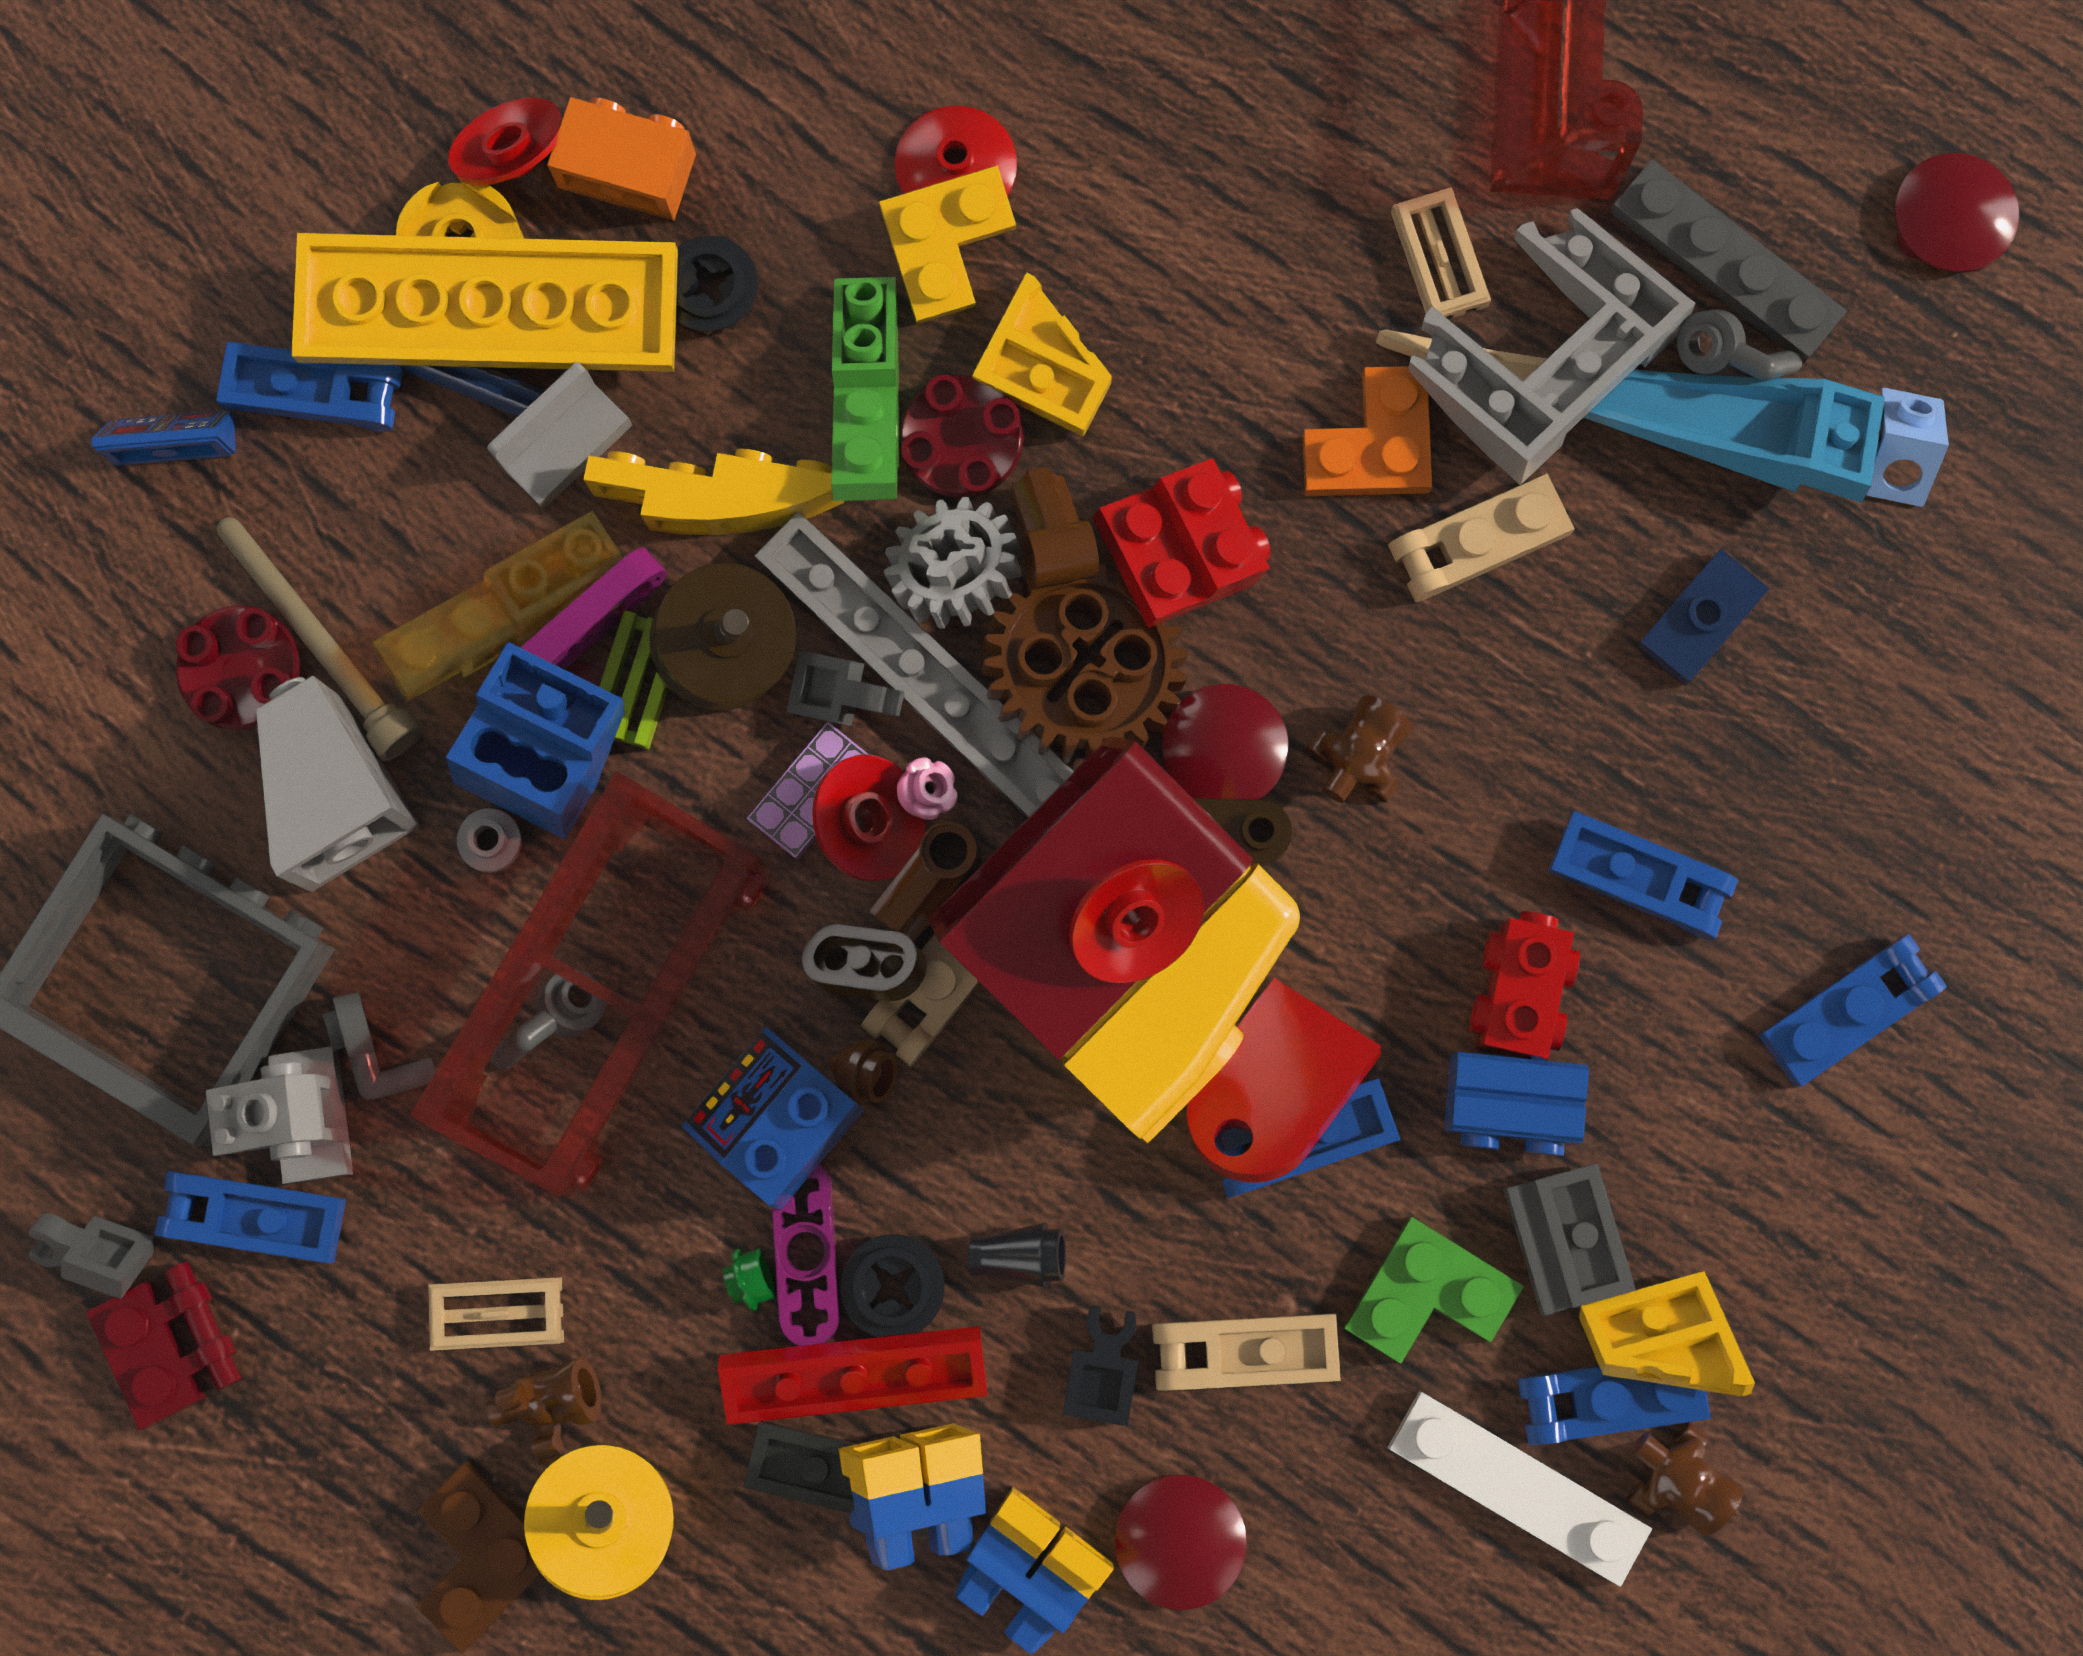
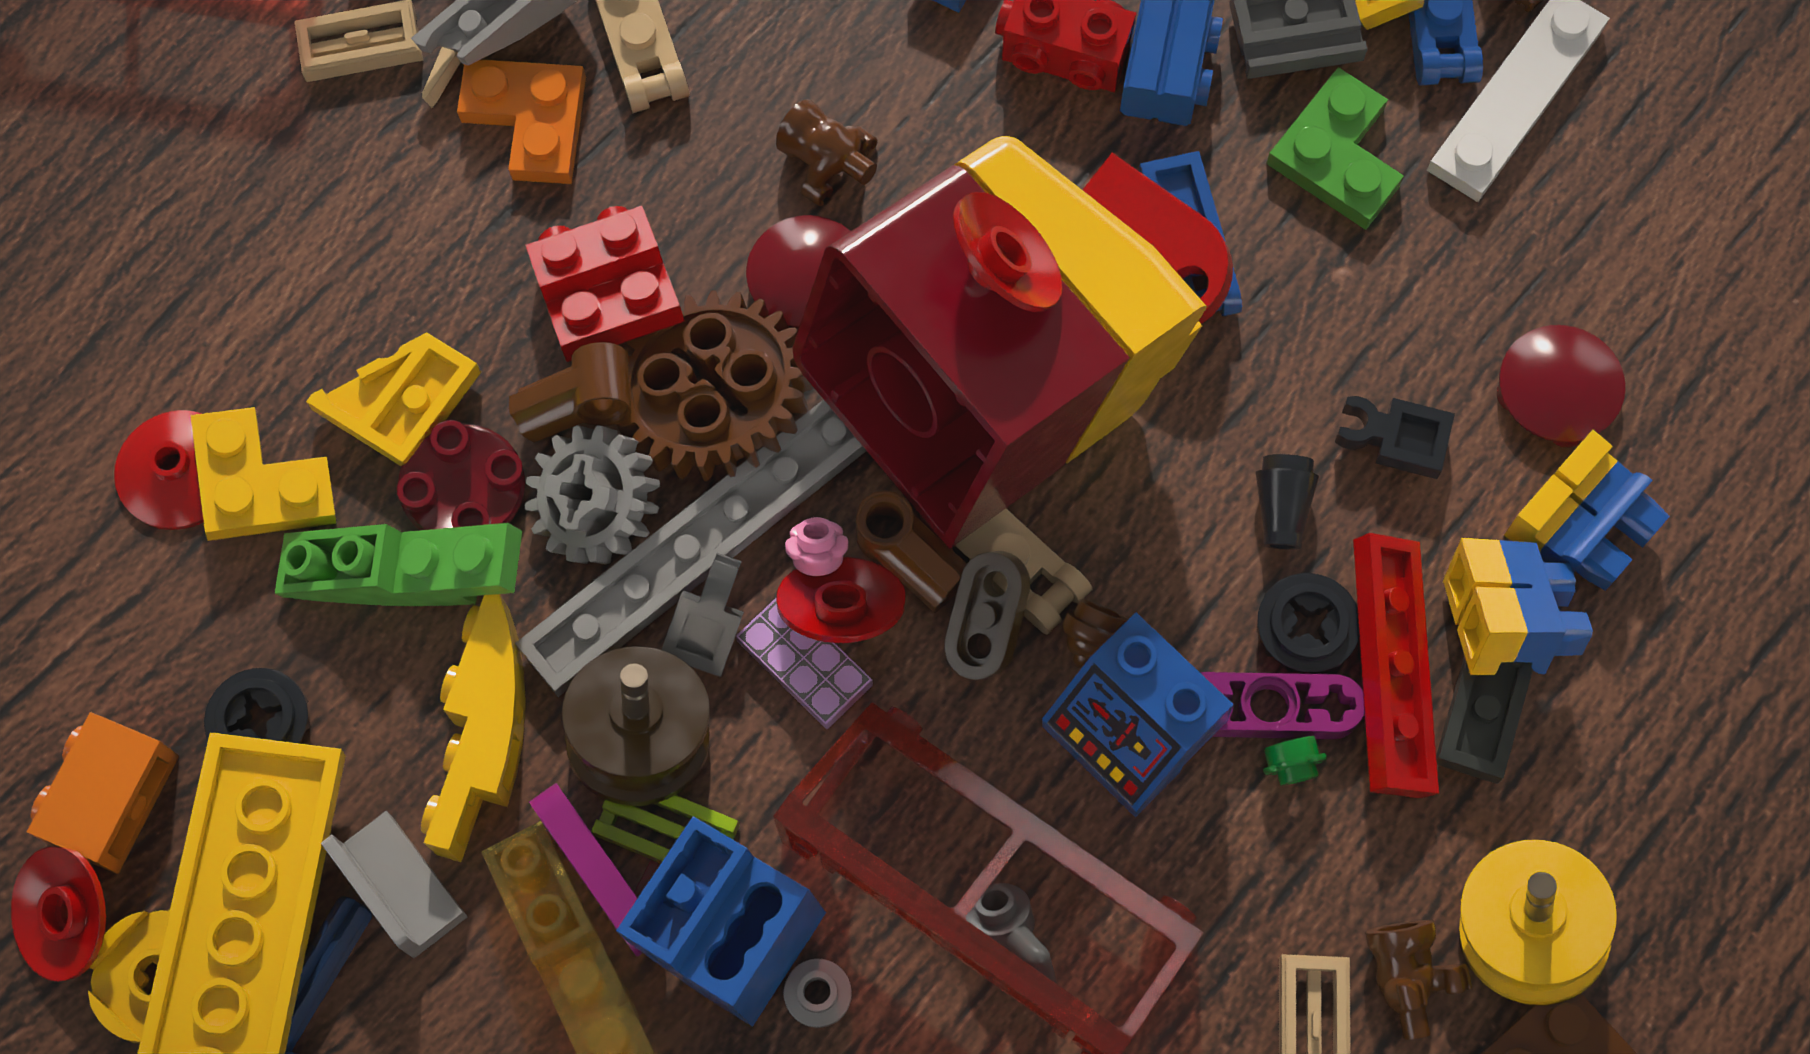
camera: 85 degrees left, 10 degrees down
(1249, 1352) = (1387, 305): tan plate -> none

